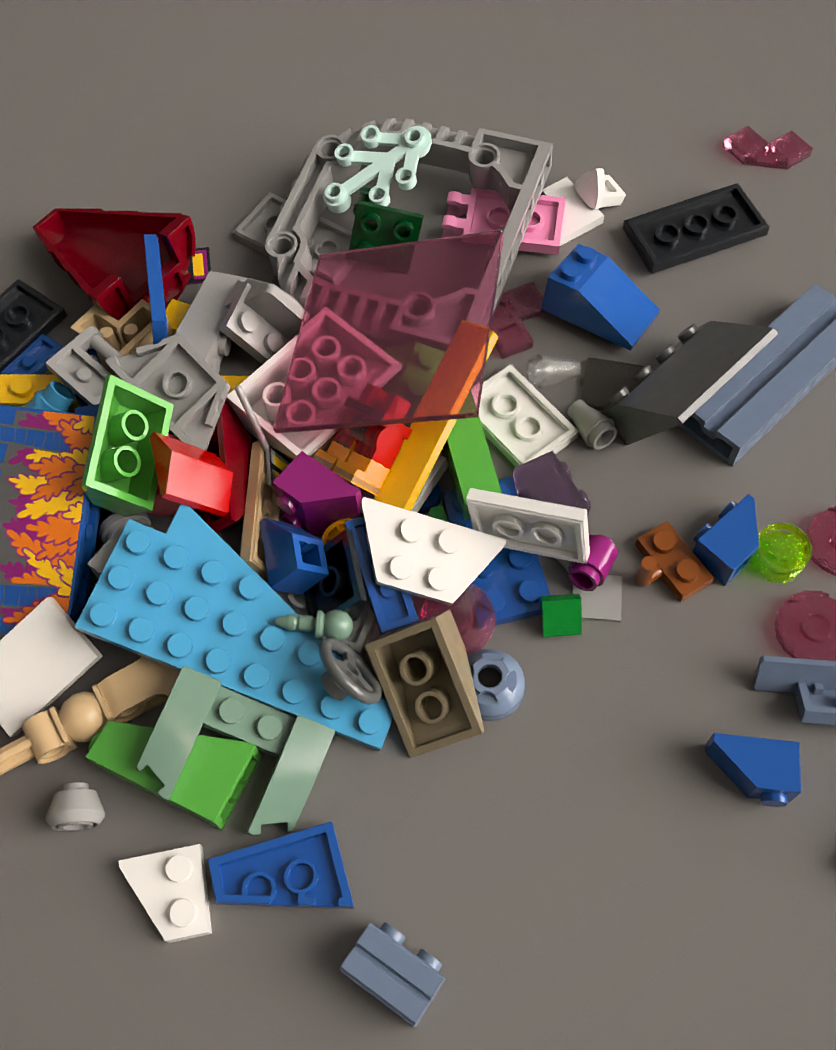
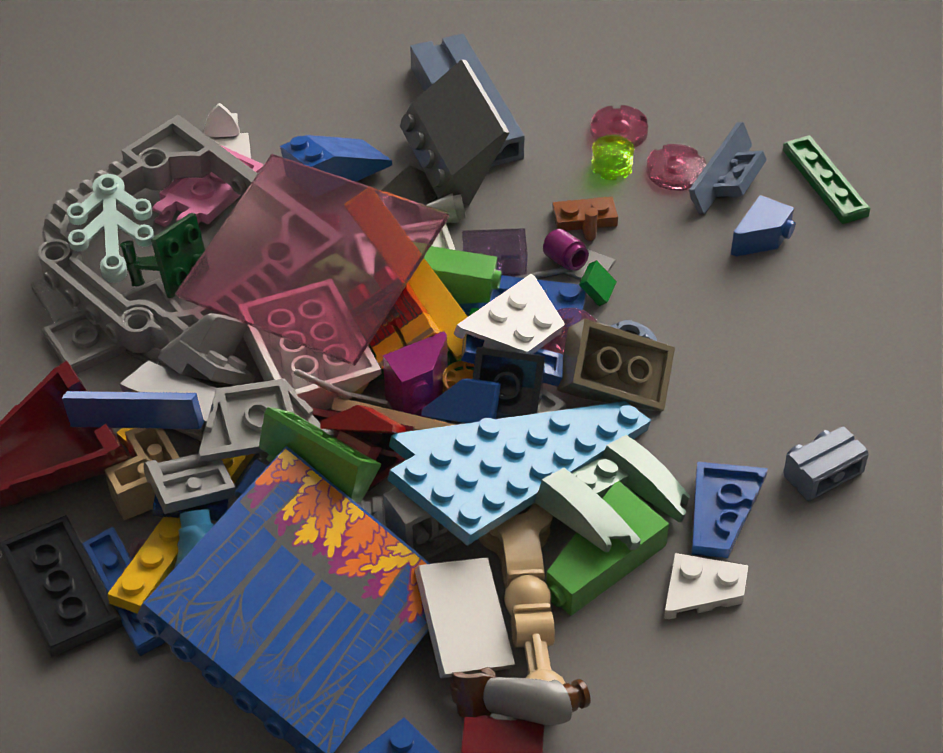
camera: 70 degrees left, 15 degrees down
(75, 808) = (608, 624): light grey cone -> none
(333, 624) = (545, 395): sand green bar -> none
(348, 676) = (593, 397): dark grey piece -> none
(531, 524) = (534, 246): white tile -> none
(695, 228) = (301, 90): black plate -> none
(730, 542) = (589, 173): blue slope -> none
(755, 151) = (244, 34): clear pink tile -> none

